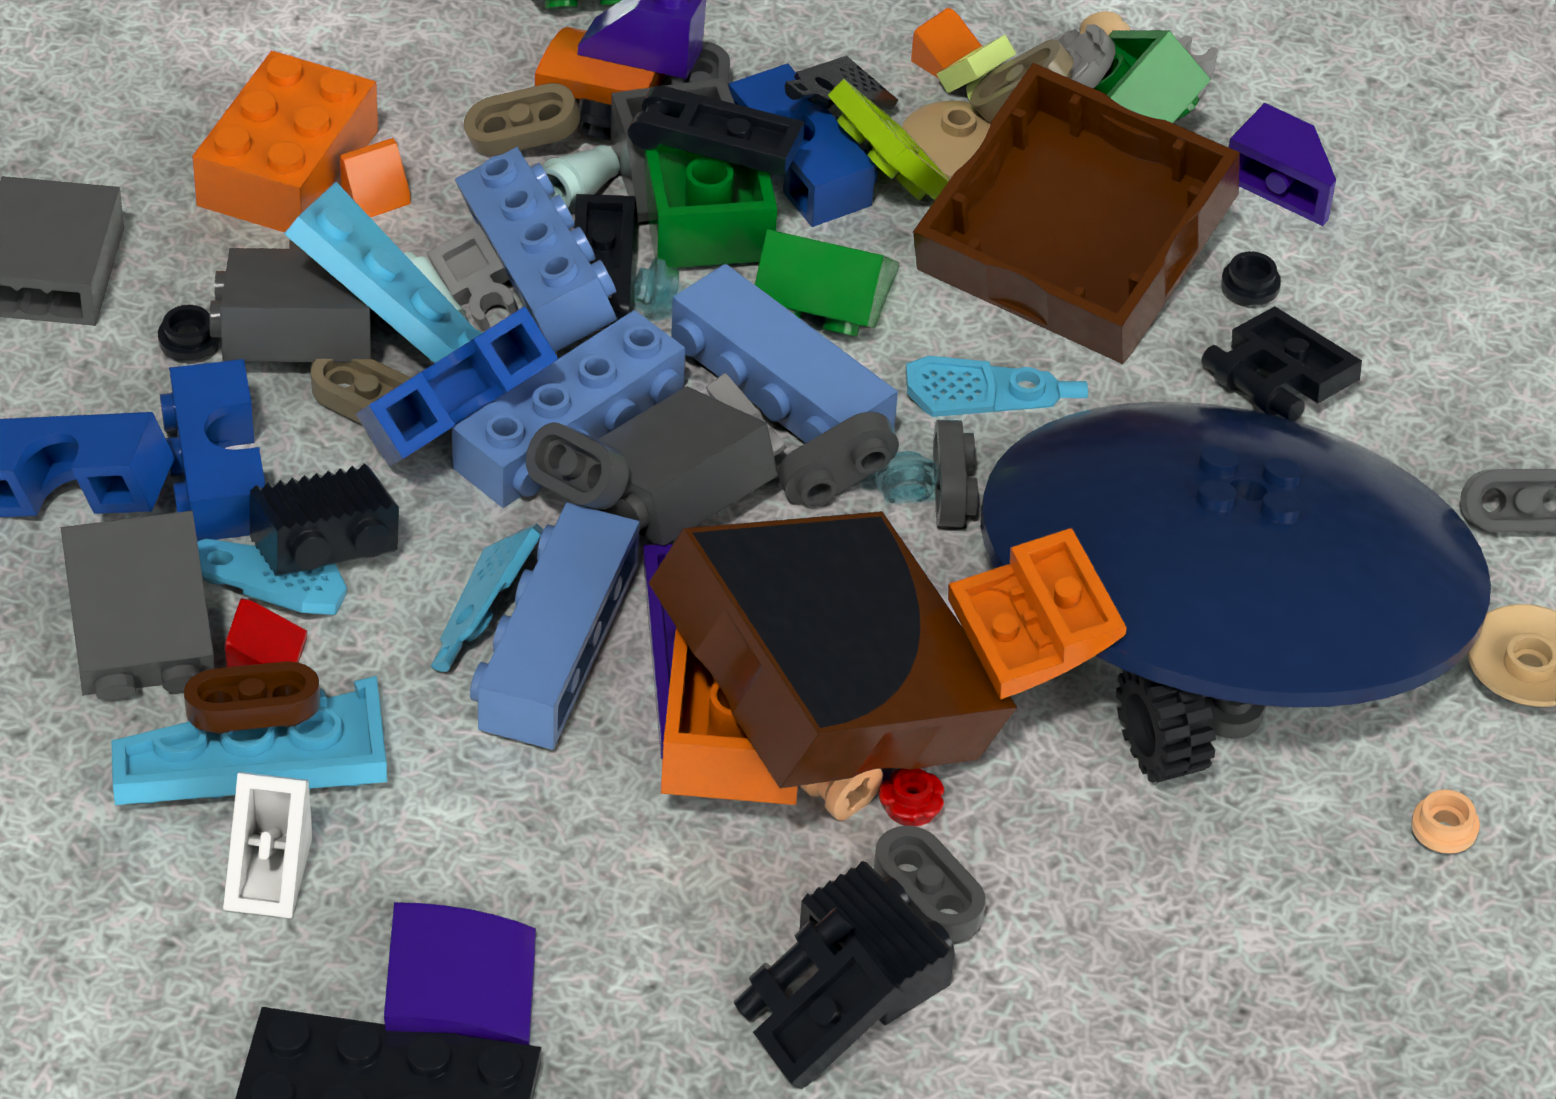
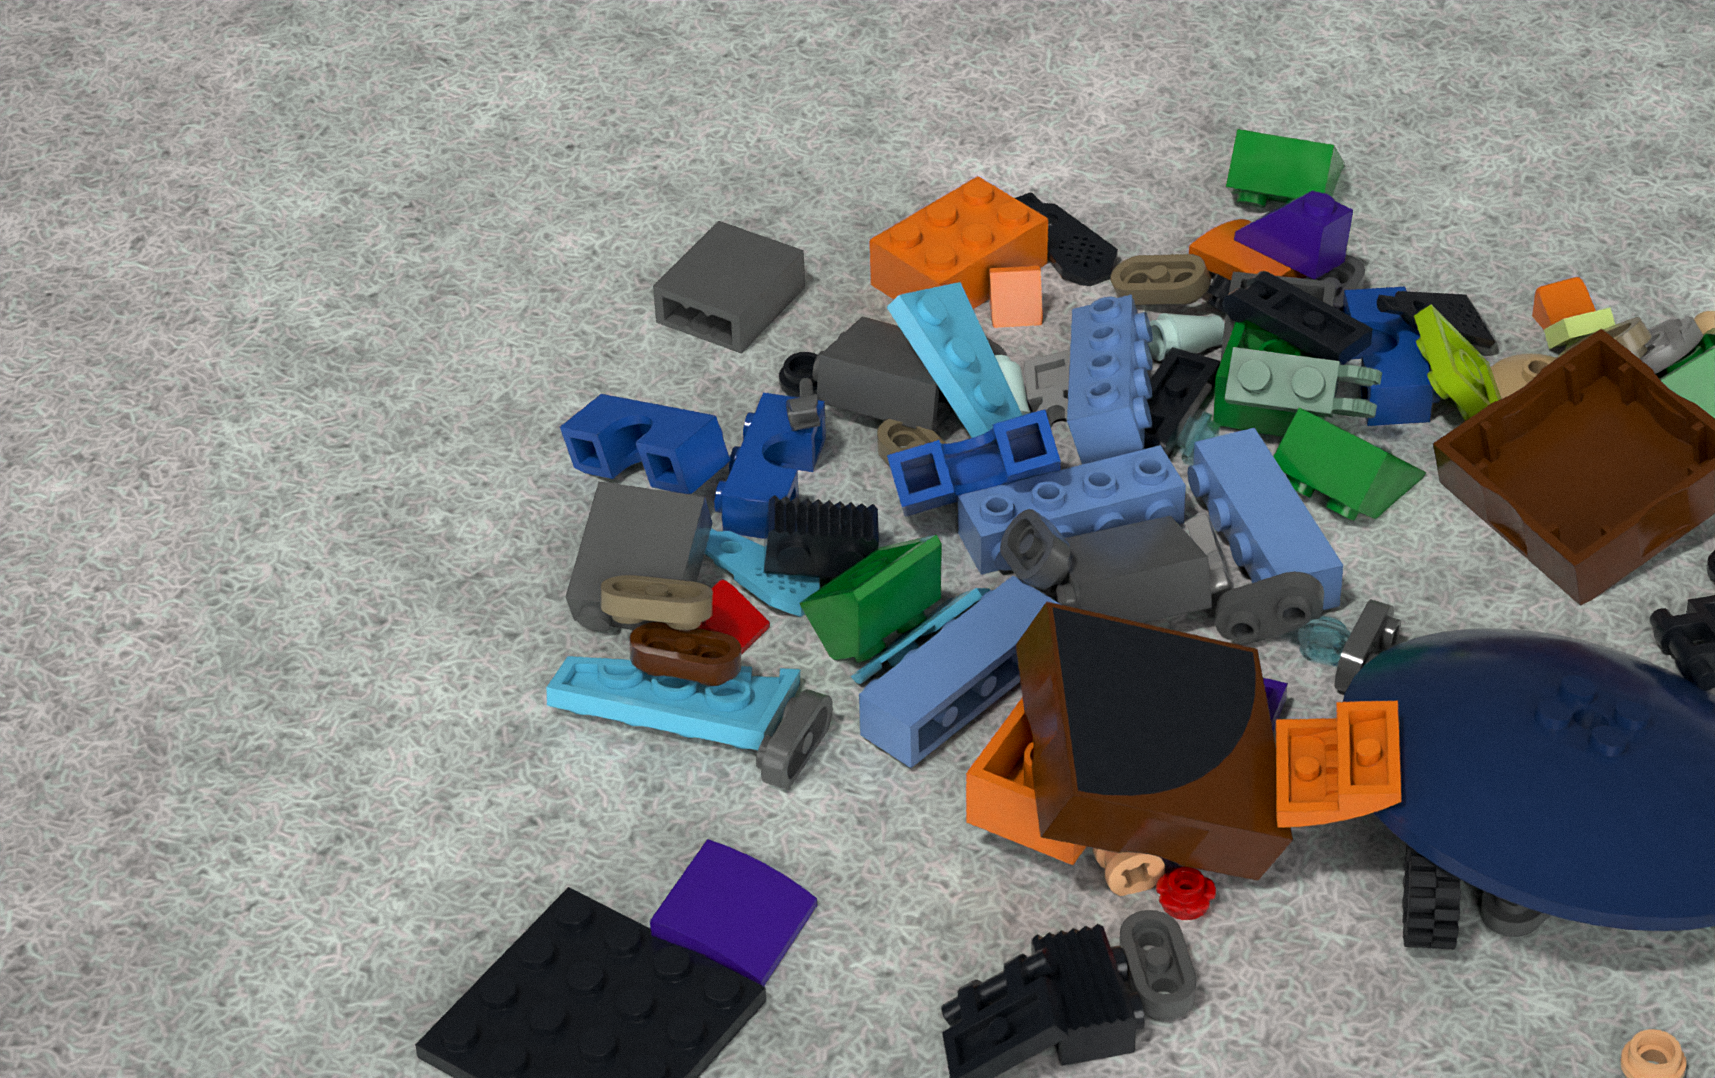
camera: 30 degrees right, 5 degrees down
(197, 646) = (642, 598): none -> dark tan plate
(231, 378) = (802, 410): none -> dark grey hand
(268, 844) = (640, 767): white slope -> none
(404, 106) = (1073, 247): none -> black piece
(417, 735) = (795, 739): none -> dark grey plate
(426, 568) = (876, 598): none -> green slope
(751, 203) = (1295, 381): none -> sand green hinge
(995, 386) = (1452, 595): medium azure piece -> none

